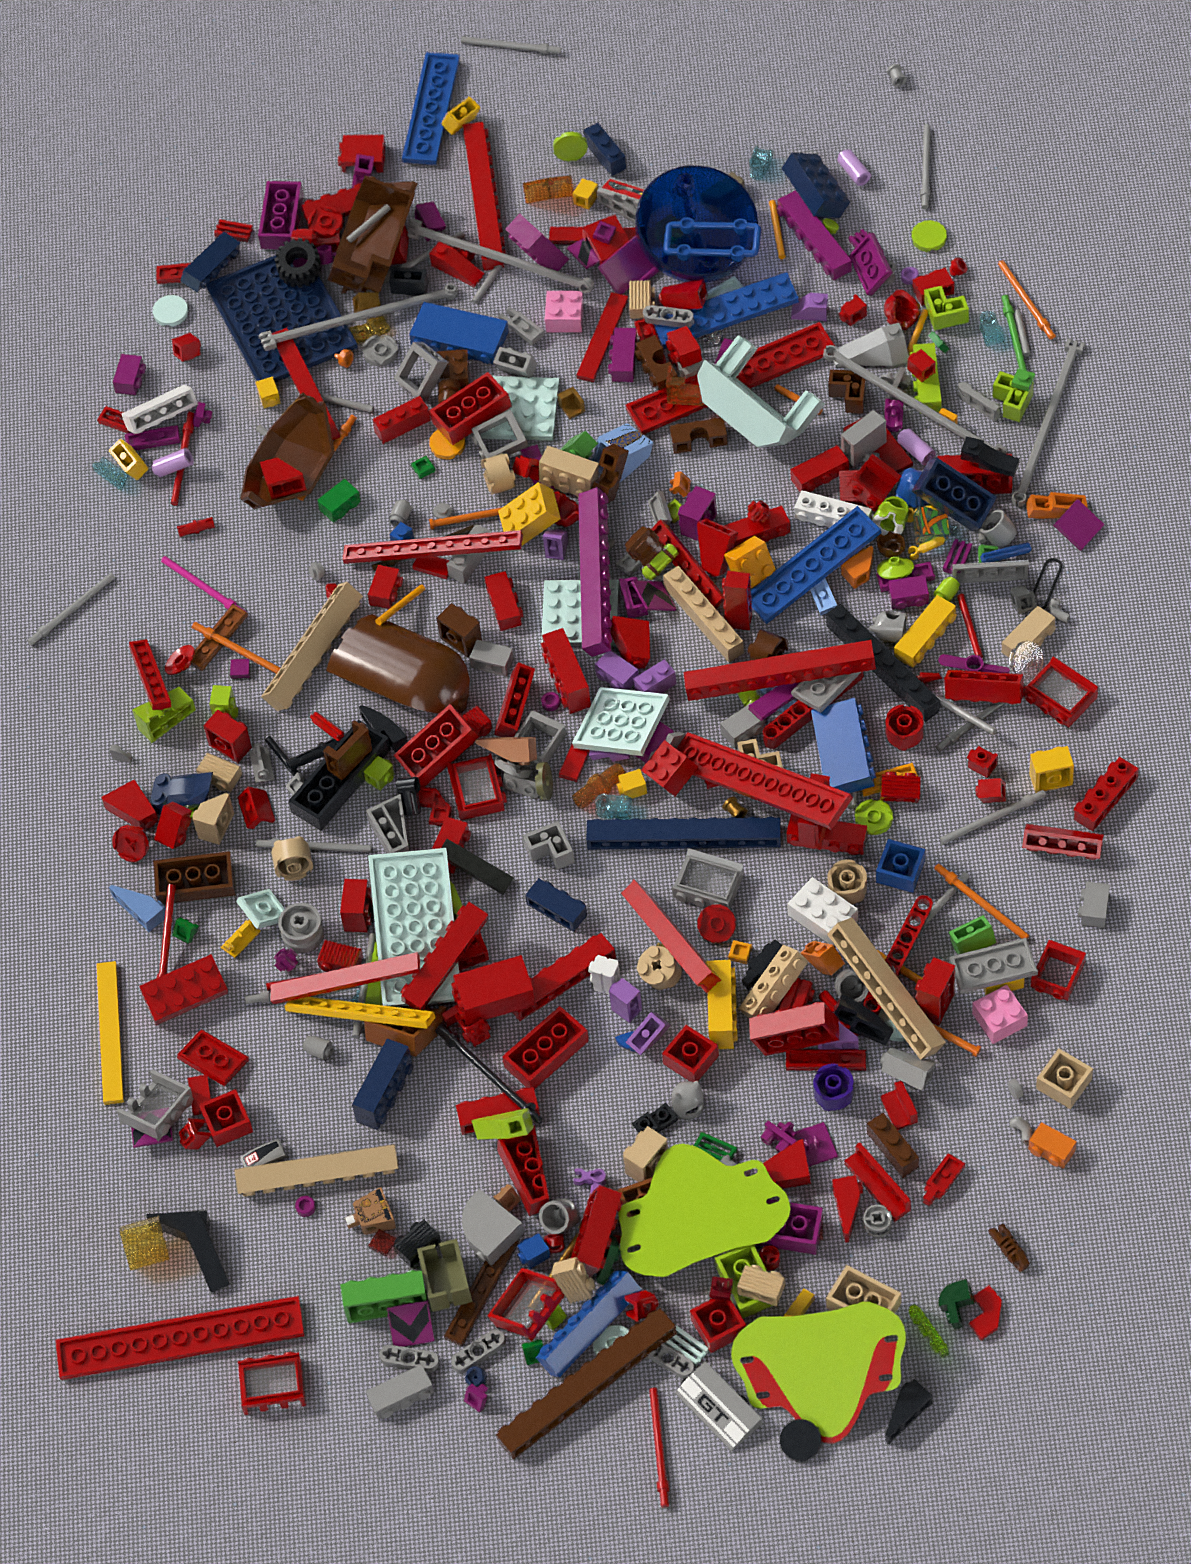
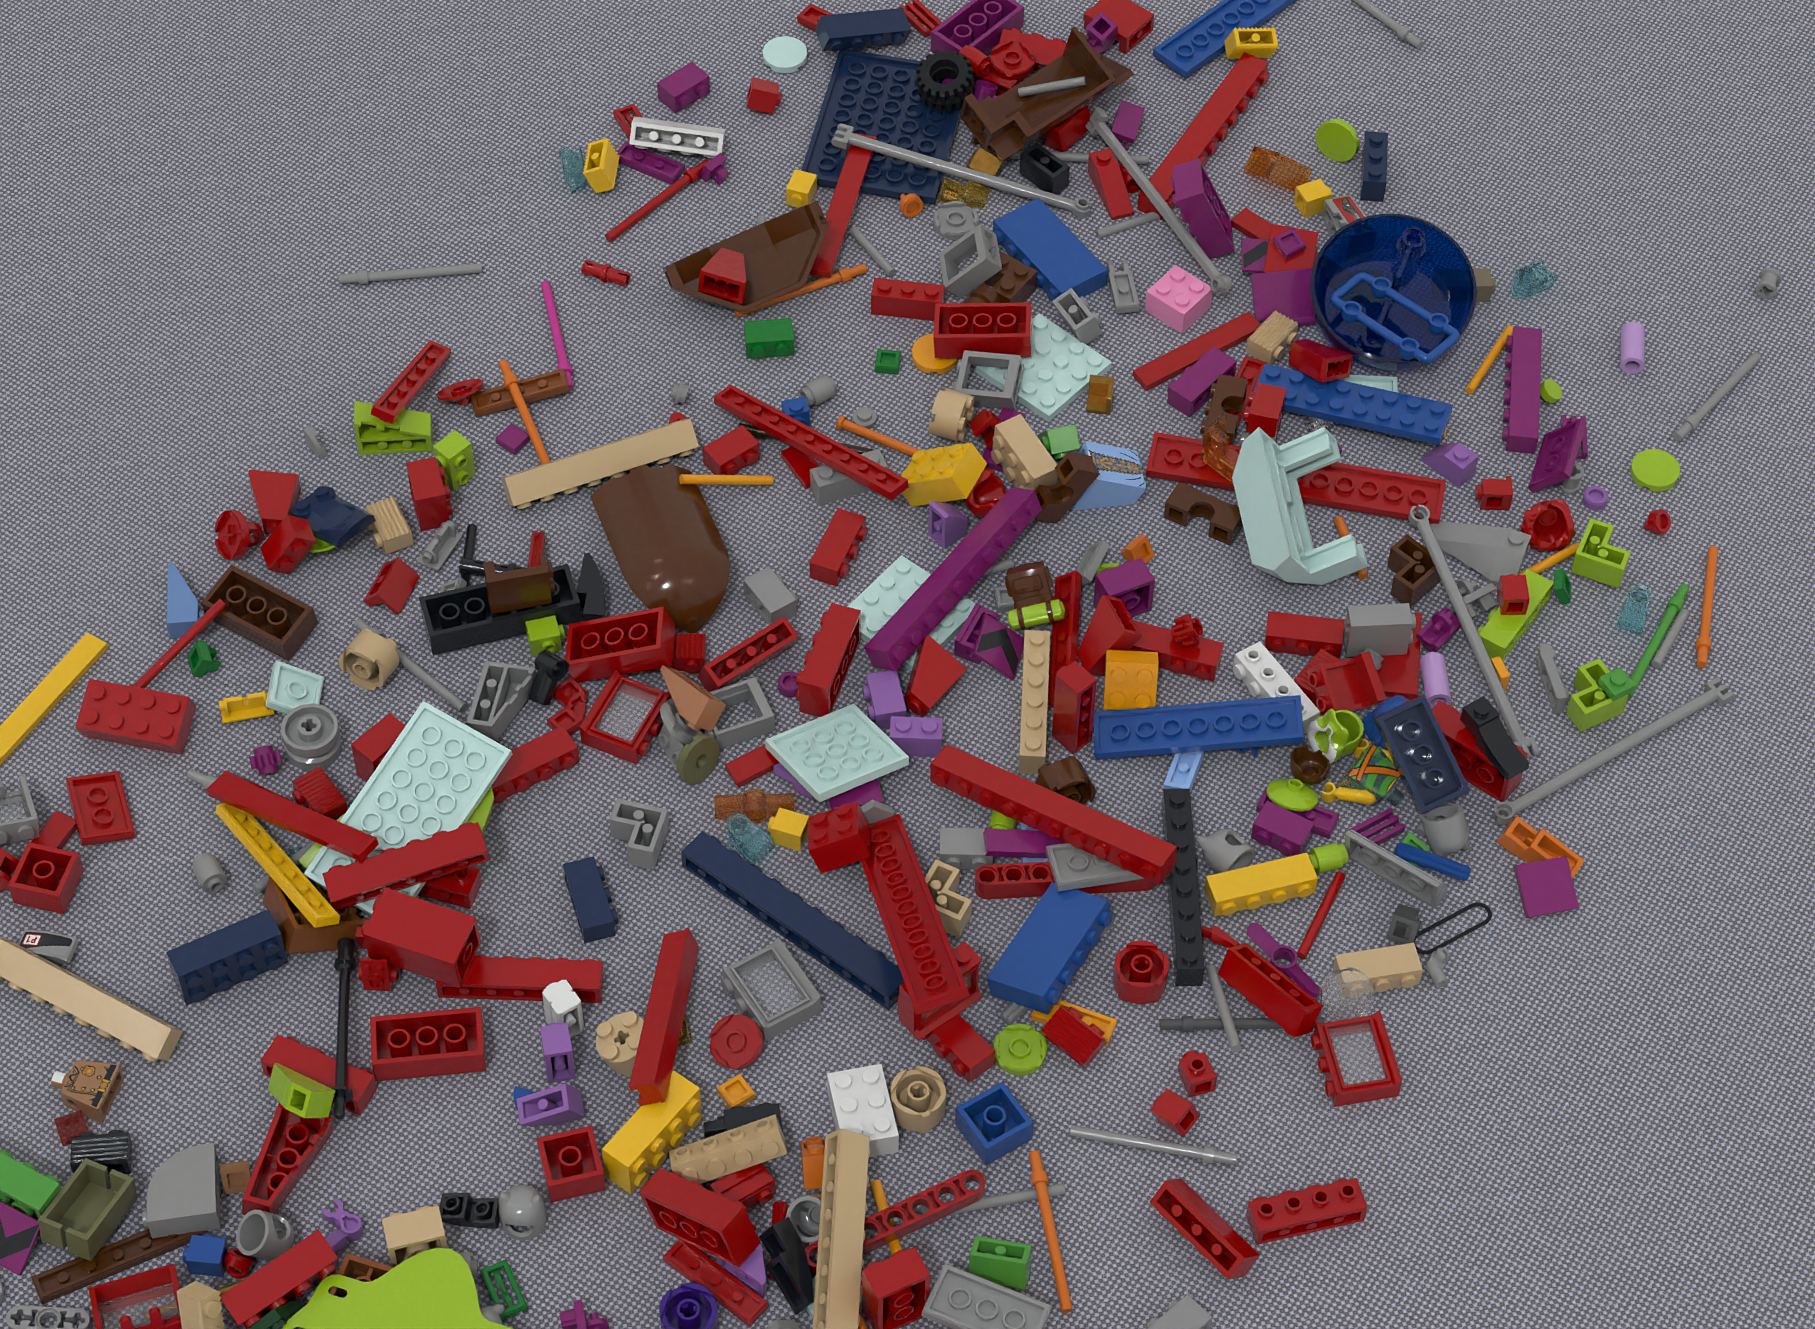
camera: 30 degrees right, 5 degrees down
(172, 462) = (640, 195): lavender brick -> none
(213, 818) = (335, 566): tan slope -> none
(305, 1206) = (36, 1030): magenta tile -> none
(459, 629) = (760, 541): reddish brown brick -> none
(477, 867) = (542, 798): pearl dark grey tile -> none
(675, 321) = (1279, 361): light grey beam -> none
(734, 808) = (874, 932): pearl gold bush -> none
(815, 185) = (1569, 337): dark blue brick -> none
(858, 568) = (1253, 767): orange slope -> none
(934, 279) = (1621, 518): red brick -> none
(1051, 769) = (1263, 1136): yellow brick -> none

